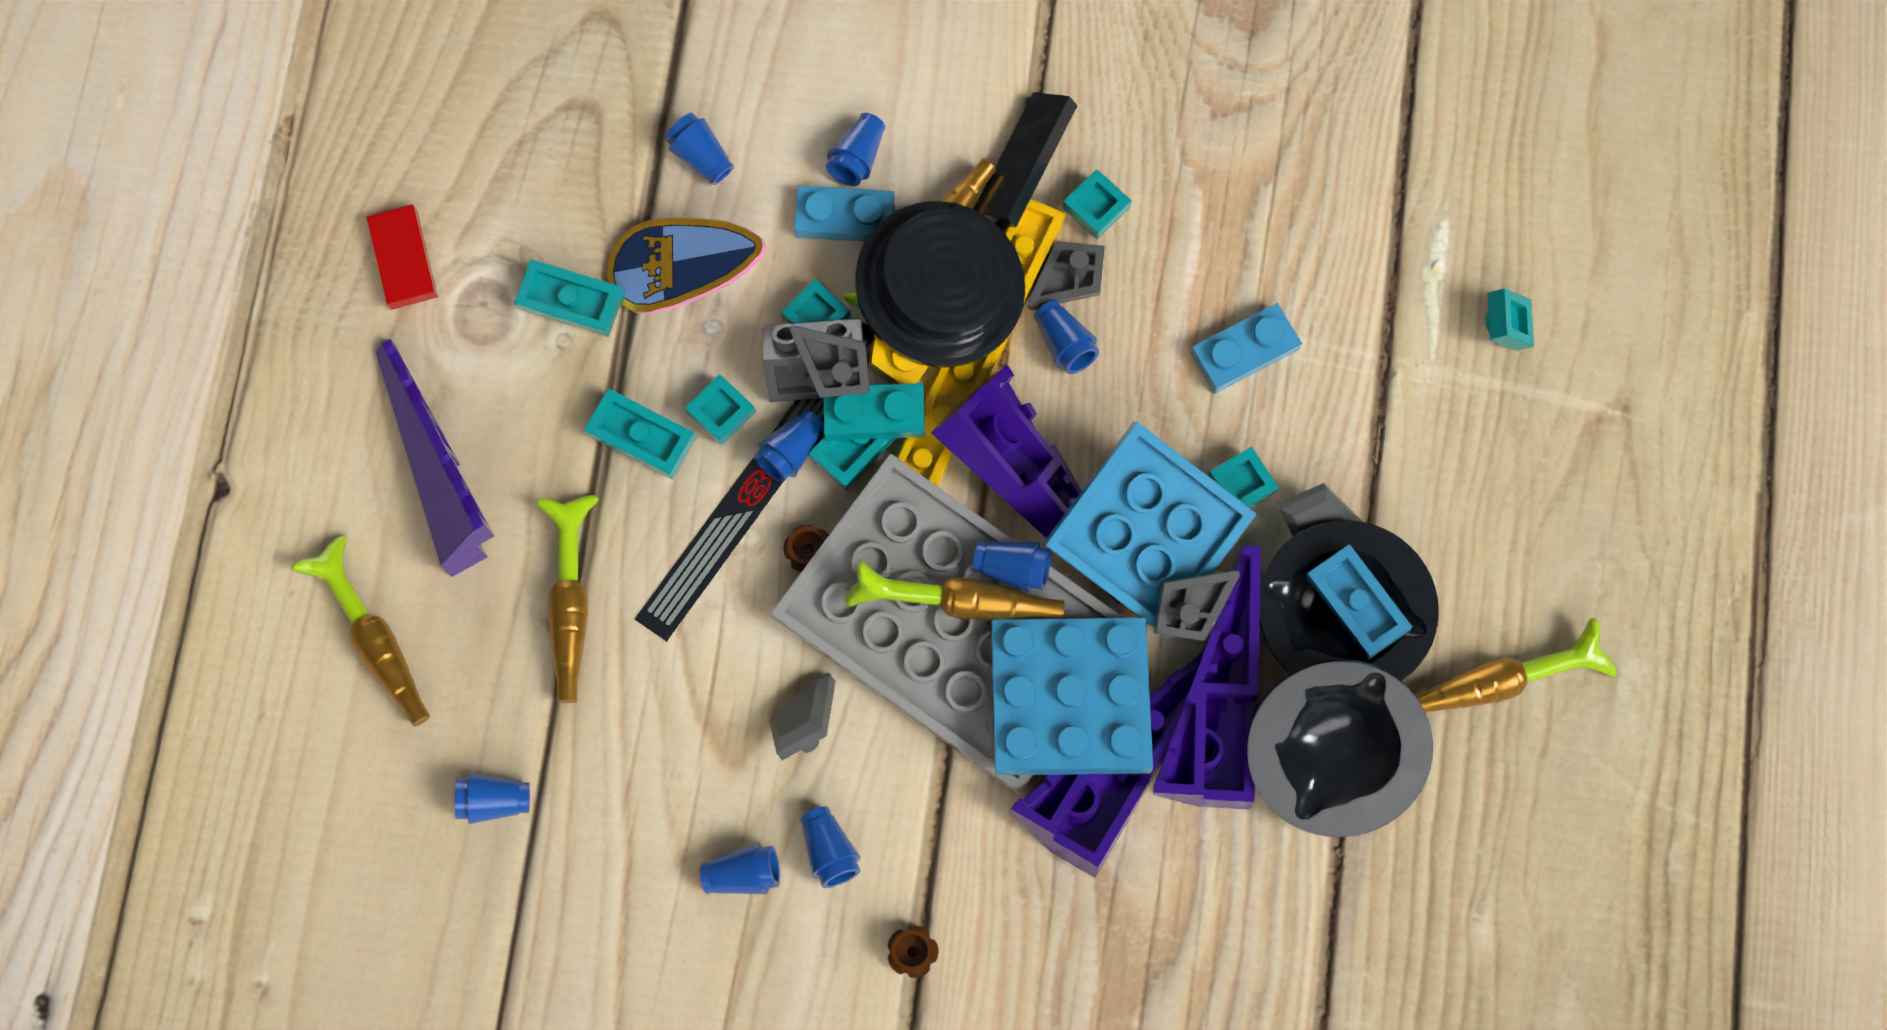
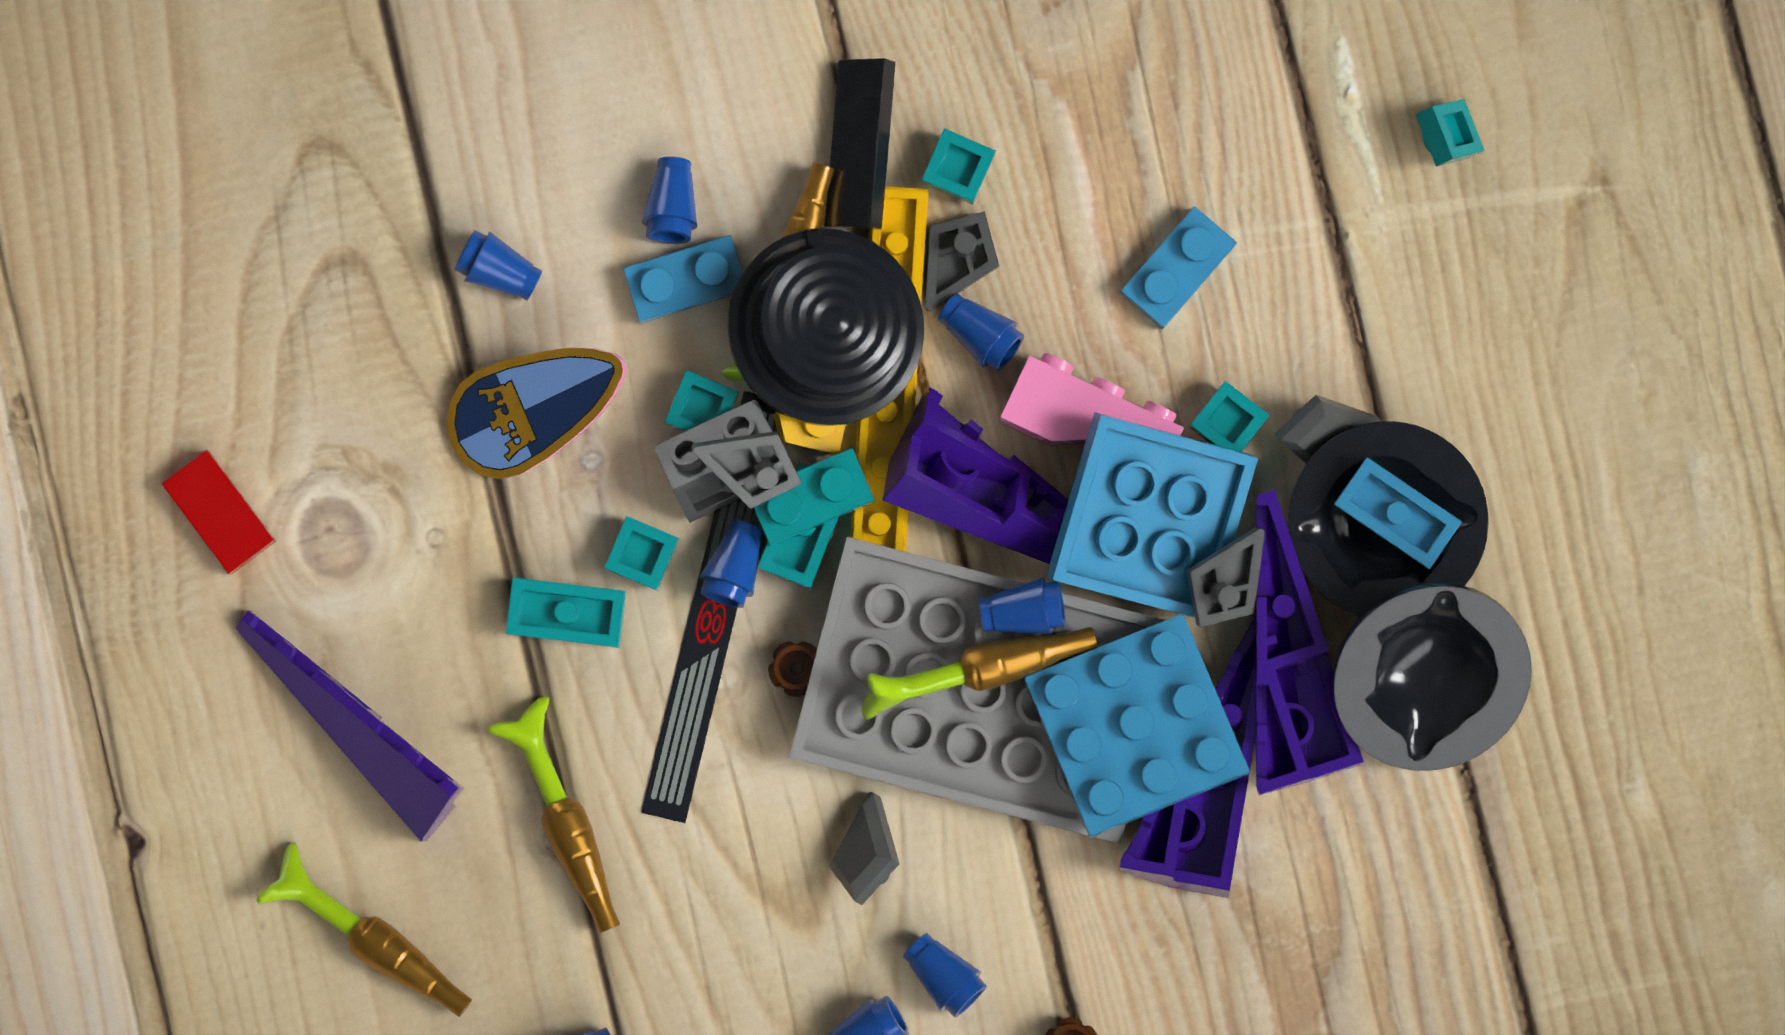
camera: 25 degrees left, 10 degrees up
(569, 297) = (426, 491): teal plate -> none
(1101, 411) = (1060, 407): none -> bright pink slope
(1508, 678) = (1578, 526): pearl gold piece -> none

